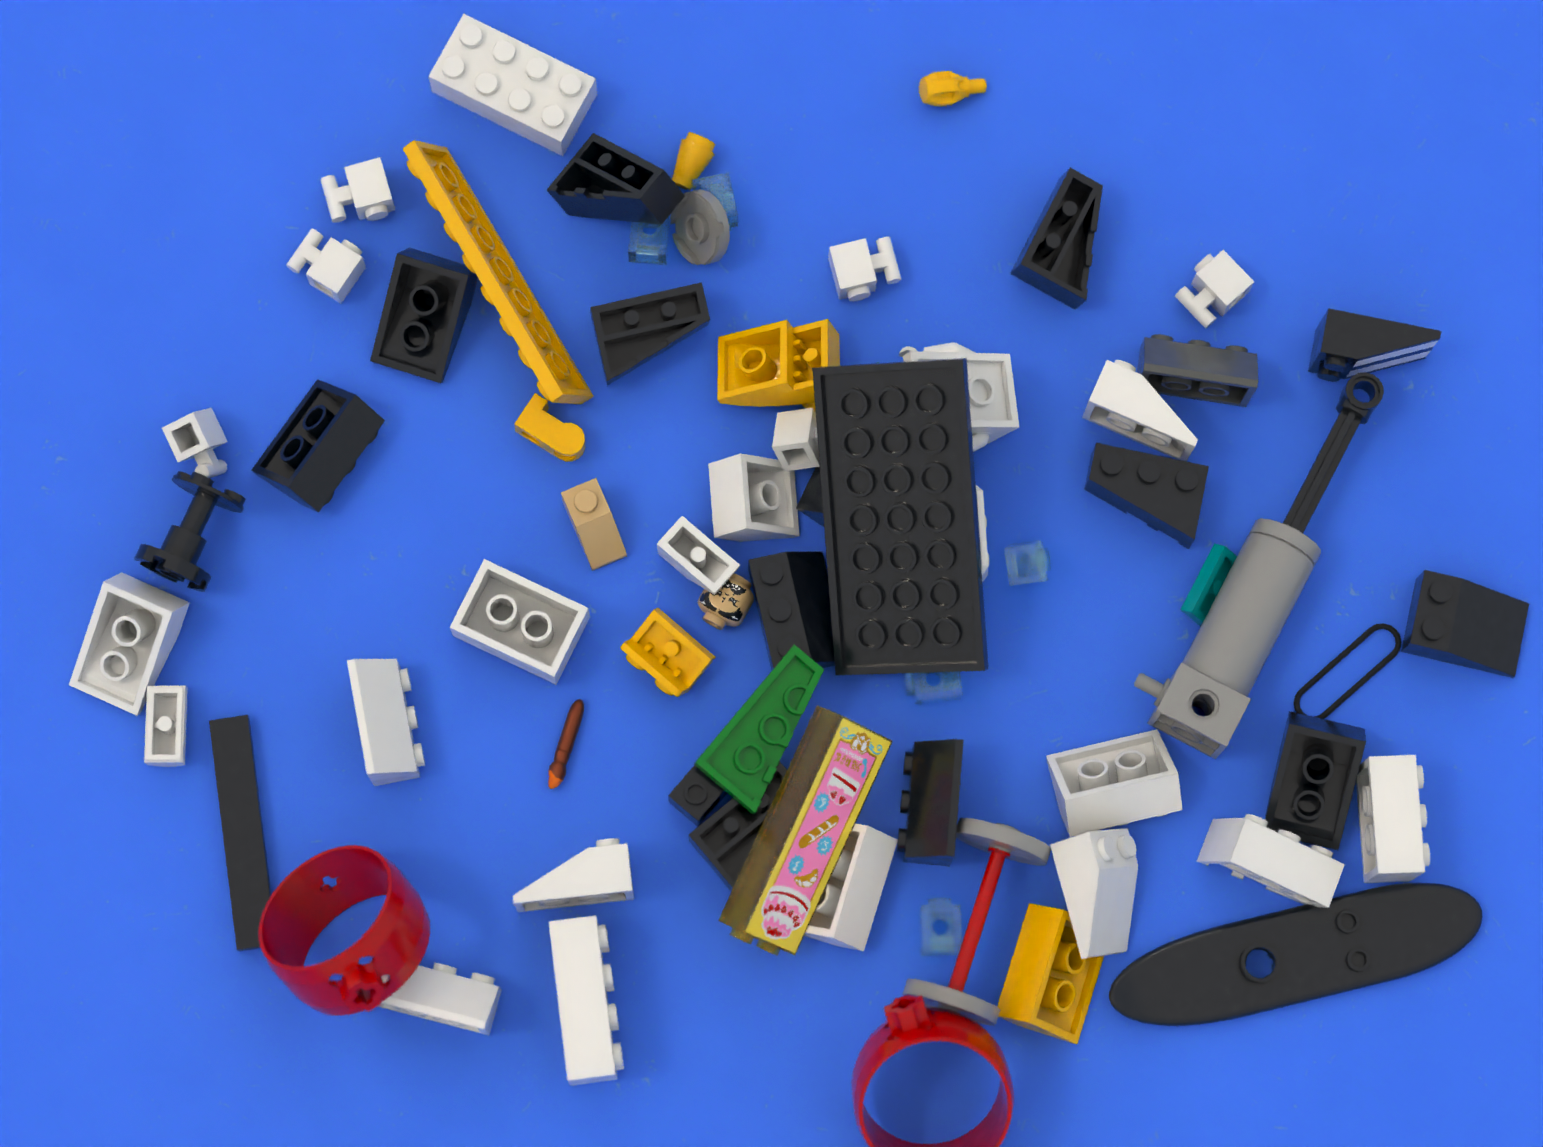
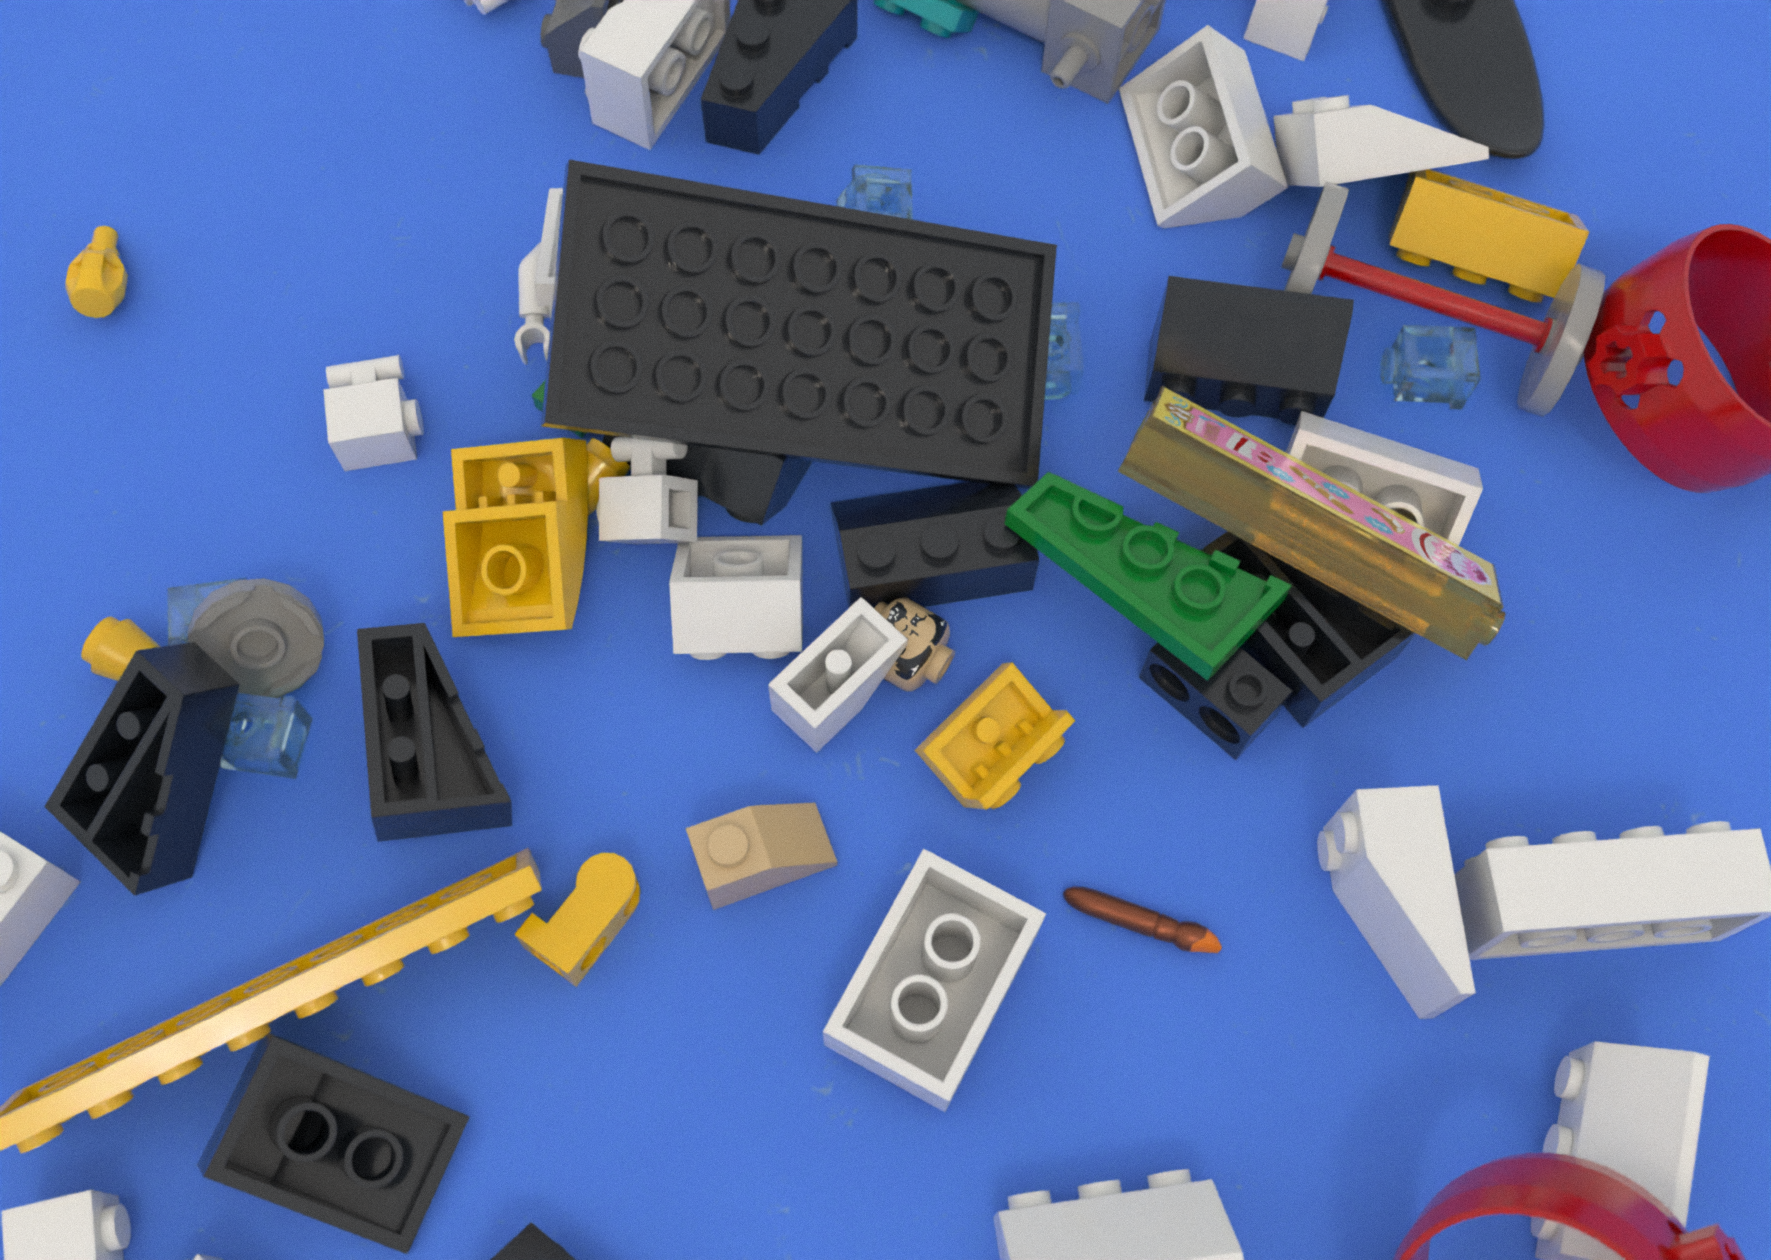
camera: 85 degrees left, 10 degrees down
(1062, 240) = (374, 134): black wedge -> none

